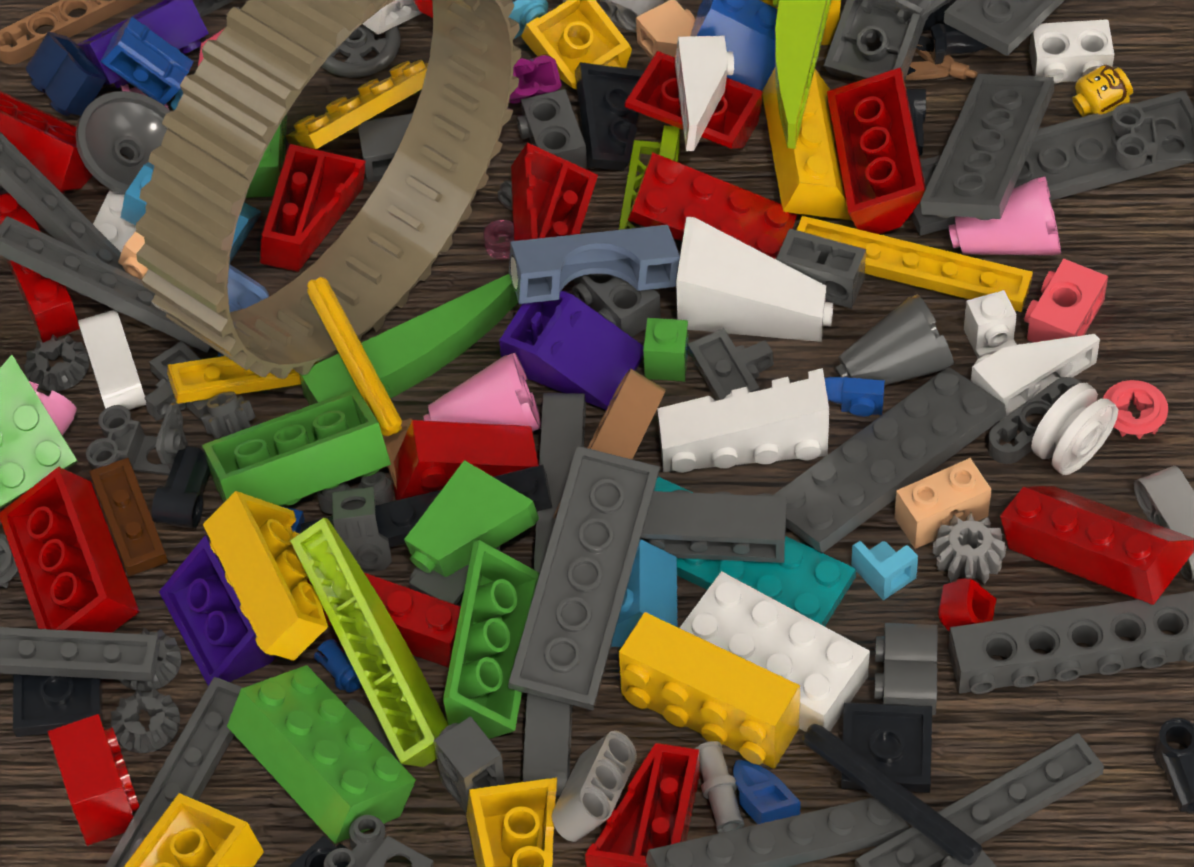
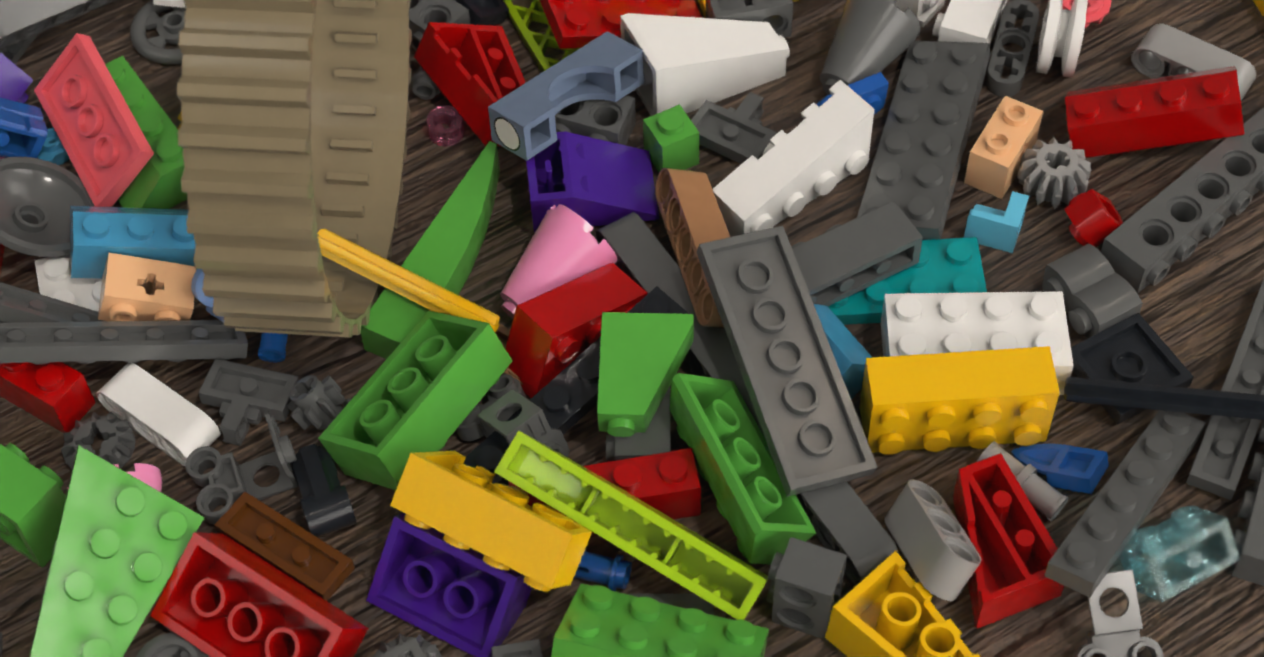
camera: 35 degrees left, 0 degrees up
(217, 375) = (282, 367): yellow tile -> none

